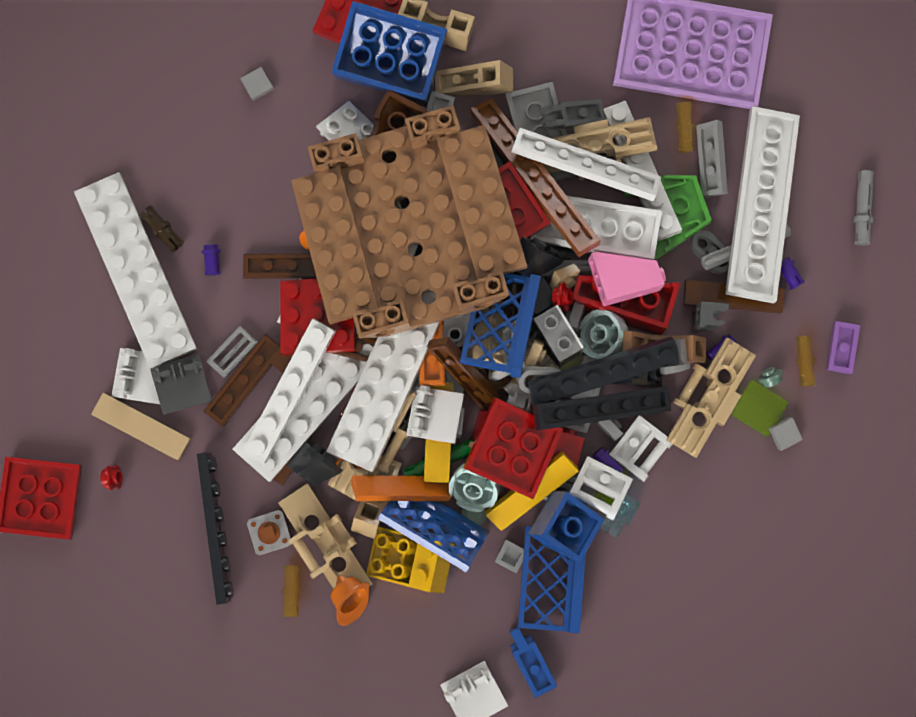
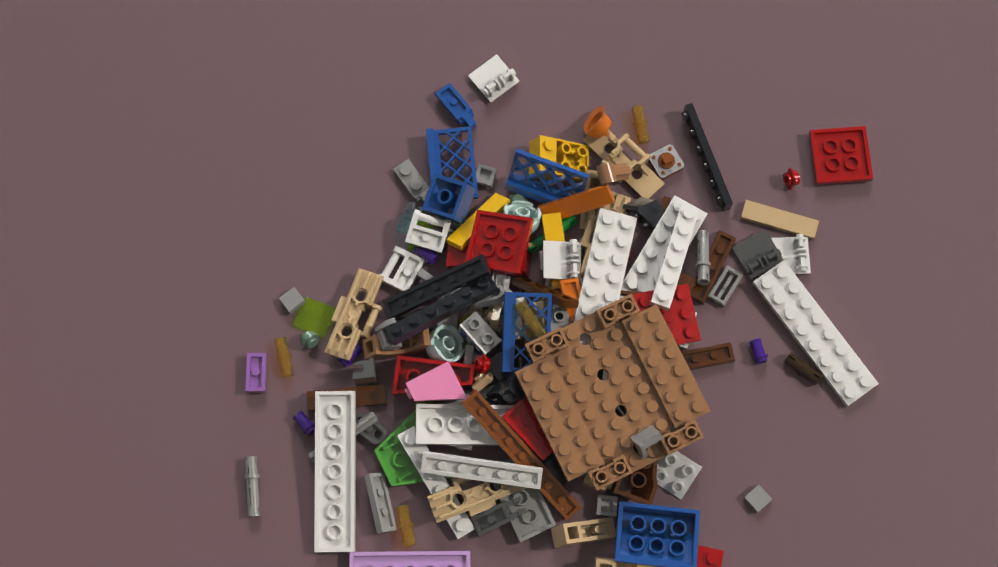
camera: 170 degrees right, 10 degrees down
(252, 388) = (703, 265): none -> light grey pin
(349, 517) = (612, 173): none -> medium nougat piece
(379, 156) = (646, 439): none -> light grey tile
(494, 330) = (530, 319): none -> clear yellow pin
(606, 568) = (412, 180): none -> light grey hinge

